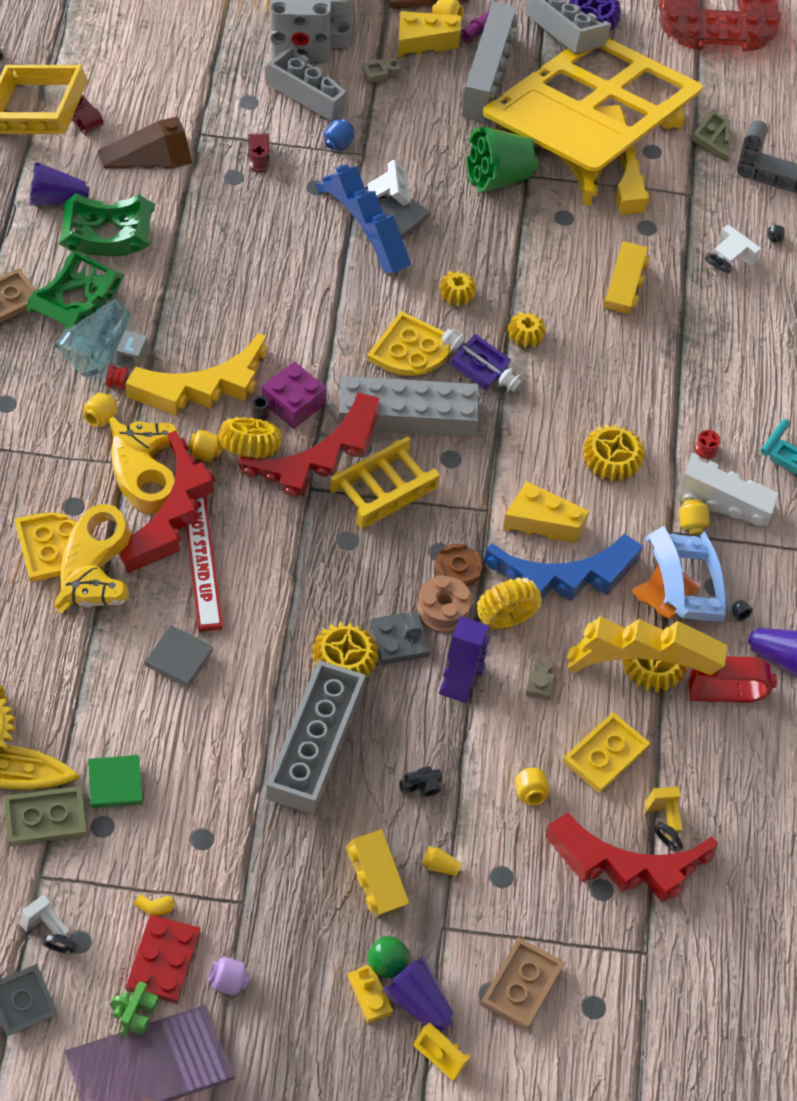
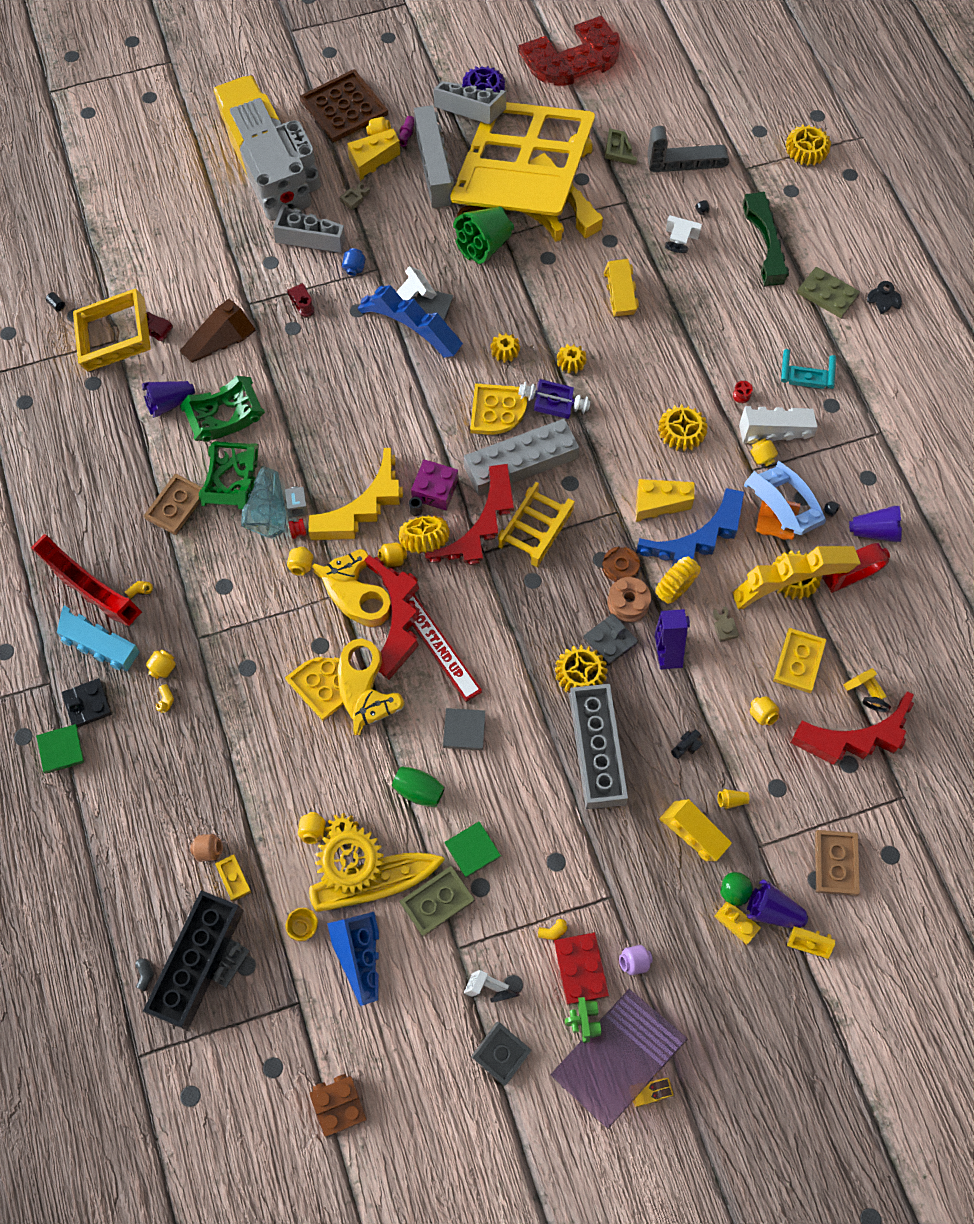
camera: 20 degrees left, 10 degrees up
(92, 690) = (418, 786): none -> green piece

